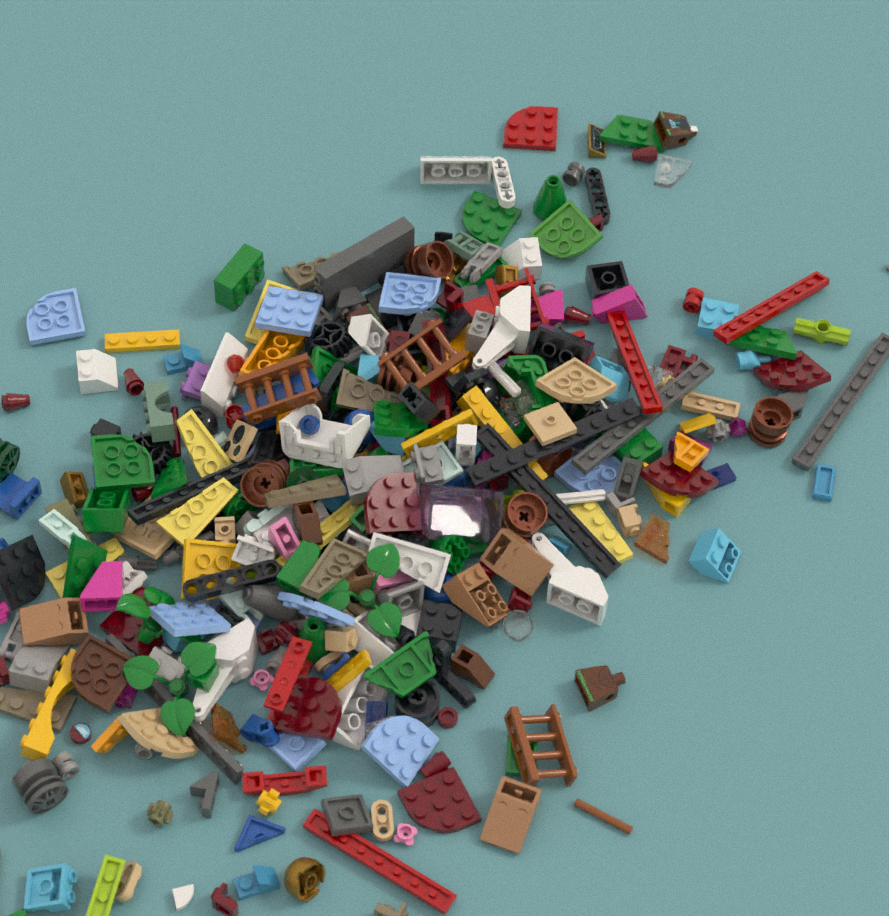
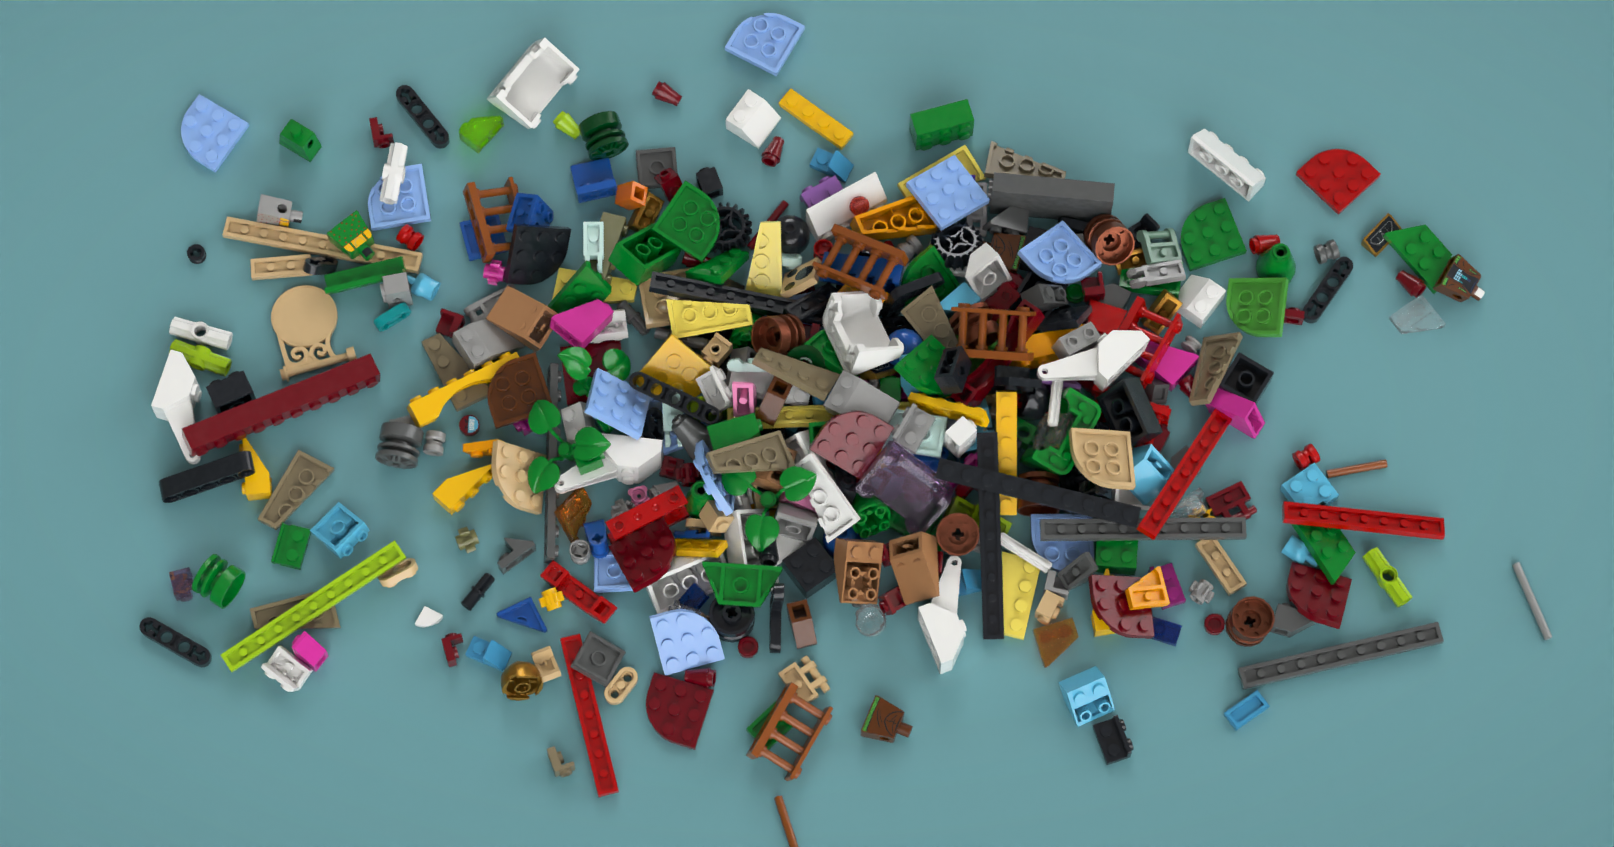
camera: 45 degrees right, 15 degrees up
(55, 455) = (652, 162): none -> dark grey tile
(55, 482) = (631, 195): none -> orange brick
(77, 454) = (669, 183): none -> dark red bracket
(116, 783) = (458, 489): none -> yellow slope
(158, 423) = (776, 183): sand green arch -> none
(204, 845) = (478, 591): none -> black axle
(254, 748) = (581, 548): none -> light grey wheel
(258, 696) = (620, 507): none -> light grey gear
(309, 425) = (860, 313): blue tile -> none
(309, 849) = (546, 663): none -> tan bracket
(405, 828) = (629, 705): bright pink plate -> none
(501, 706) = (797, 676): none -> tan plate
(503, 182) = (1256, 211): white beam -> none
(511, 815) = (716, 765): medium nougat slope -> none
(527, 199) = (1261, 243): none -> red cone
(550, 424) = (1044, 475): tan plate -> none
(577, 288) = (1212, 365): none -> dark tan wing
(697, 423) = (1189, 571): yellow piece -> none
(733, 281) = (1356, 468): none -> dark orange bar
(738, 427) = (1222, 602): magenta tile -> none
(745, 446) = (1214, 624): none -> dark red tile
(762, 569) = (1113, 740): none -> black bracket

